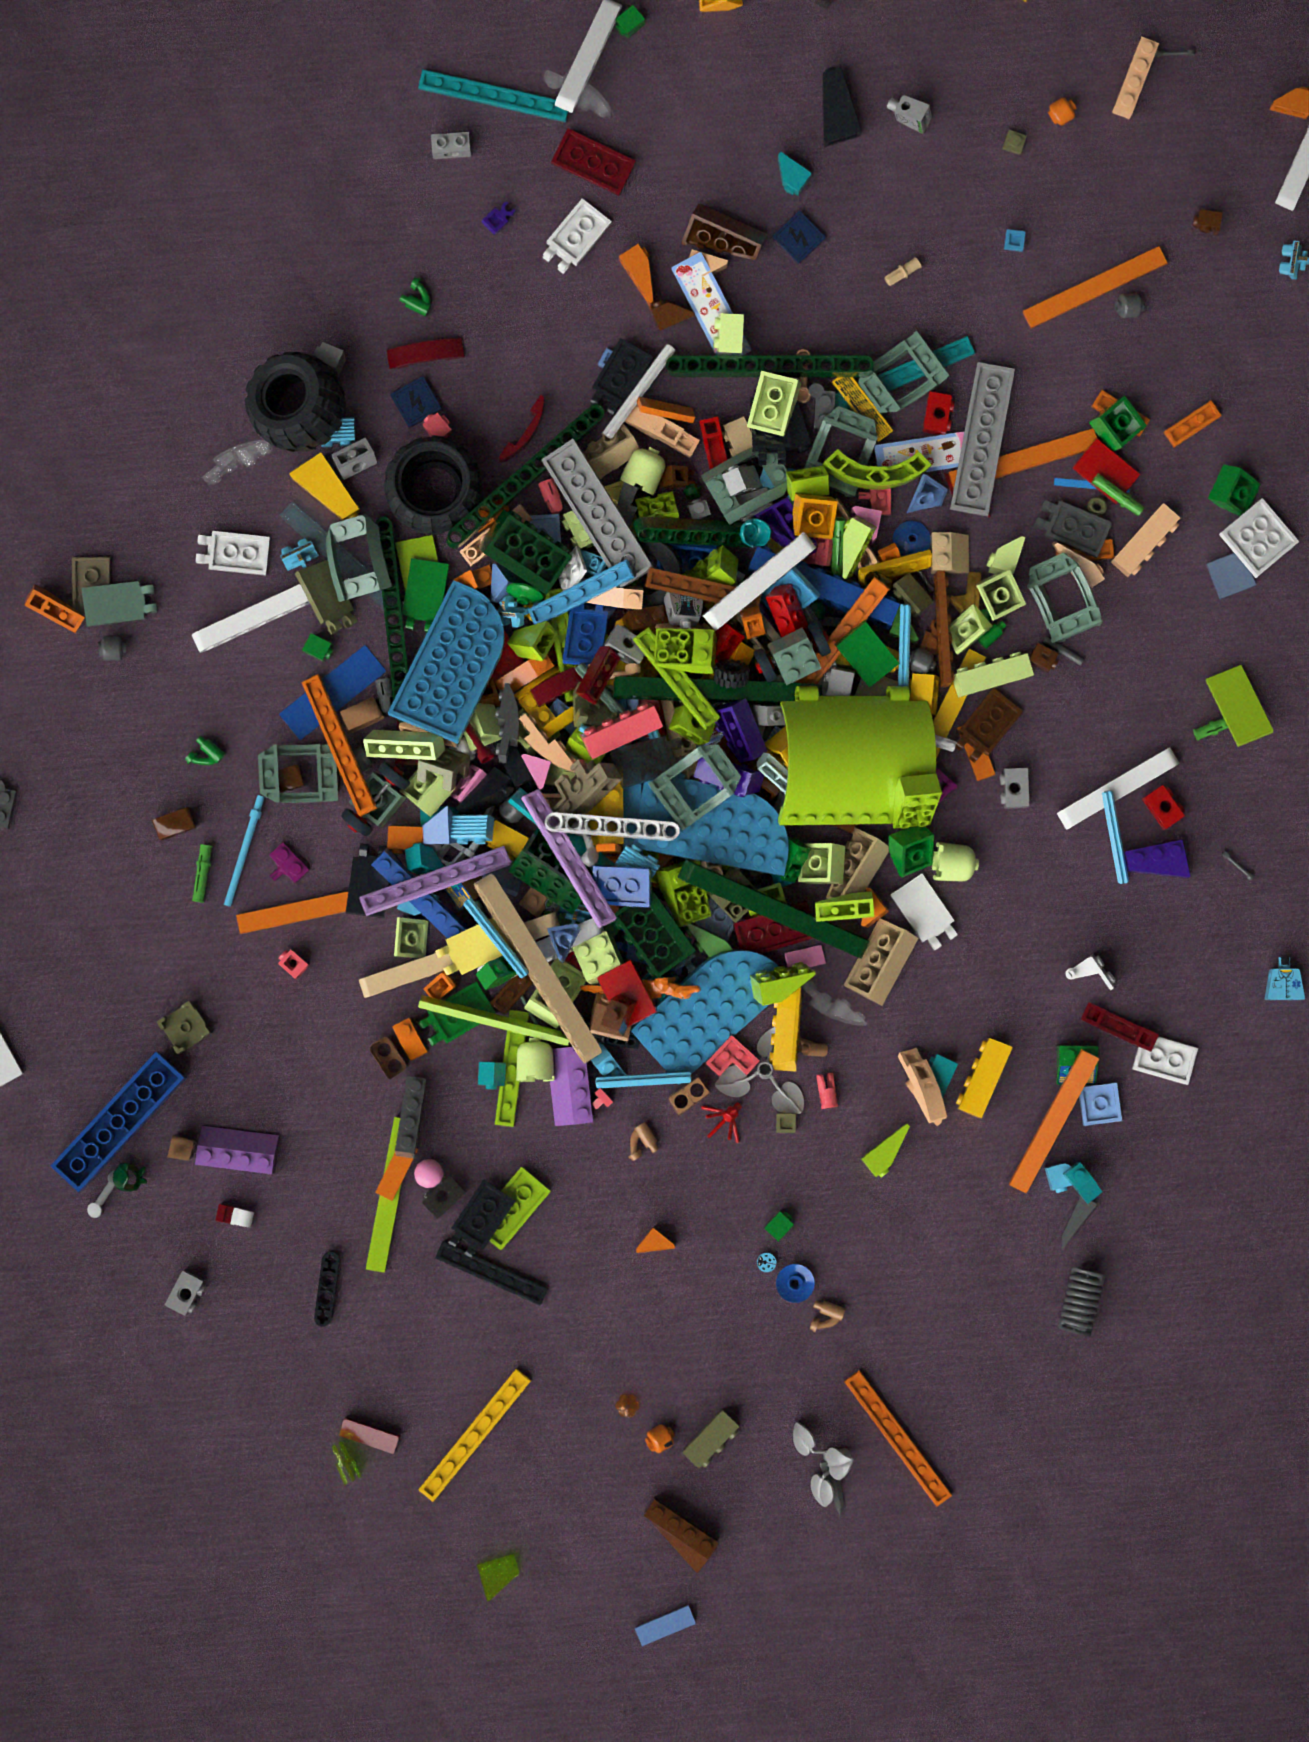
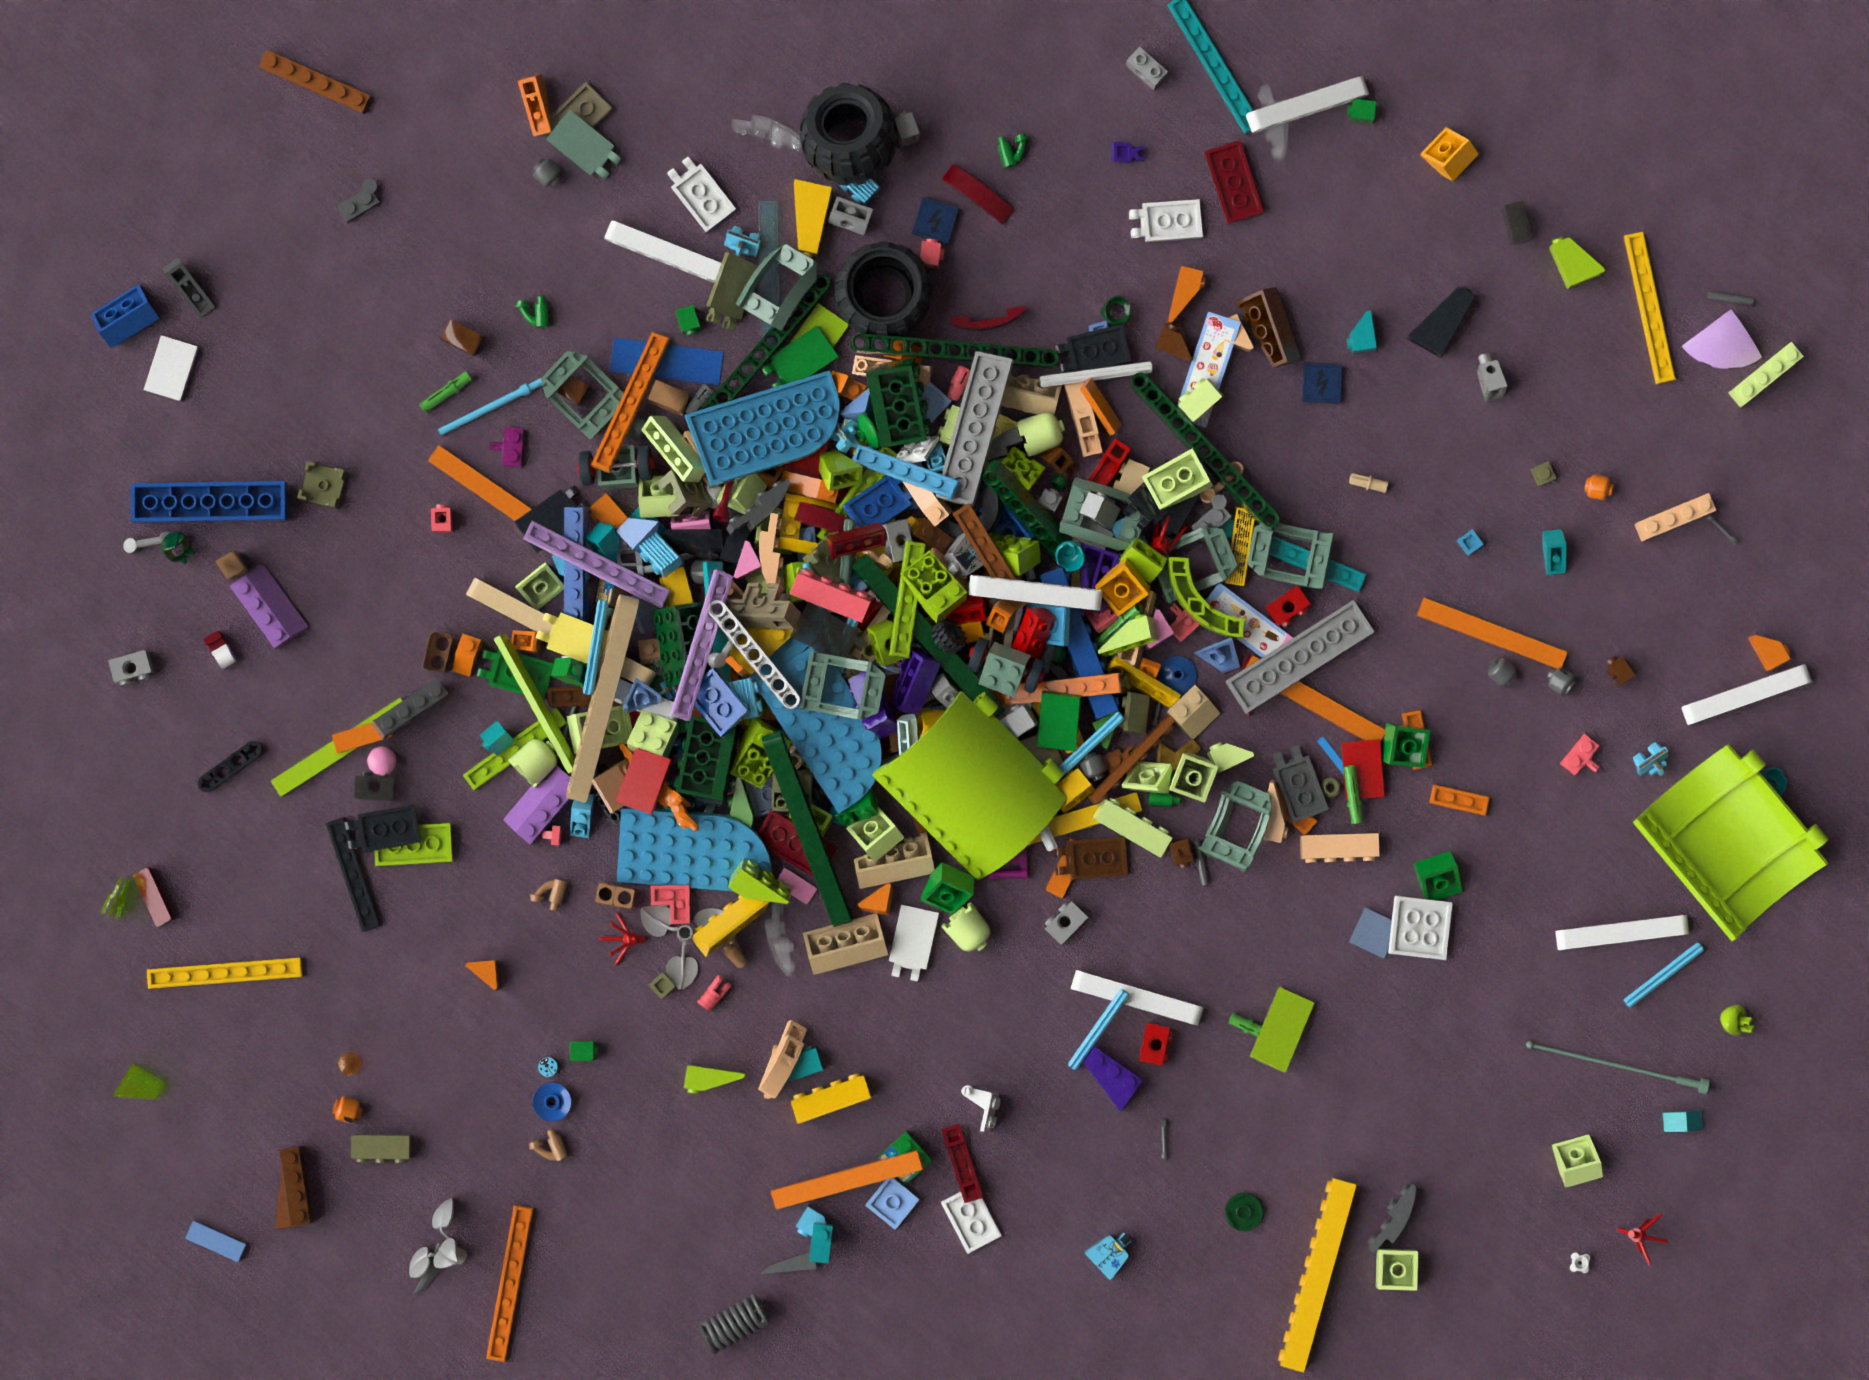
camera: 50 degrees right, 0 degrees up
(599, 341) = (1105, 310): none -> dark green piece
(618, 1014) = (622, 789): reddish brown torso -> none
(643, 1079) = (588, 845): medium azure axle -> none
(806, 458) = (1161, 542): none -> red plant
(845, 907) = (858, 879): lime slope -> none
(916, 800) = (984, 857): lime slope -> none
(1078, 186) = (1554, 551): none -> teal slope
(1176, 269) = (1561, 681): none -> dark grey head
(1242, 307) = (1581, 756): none -> coral plate

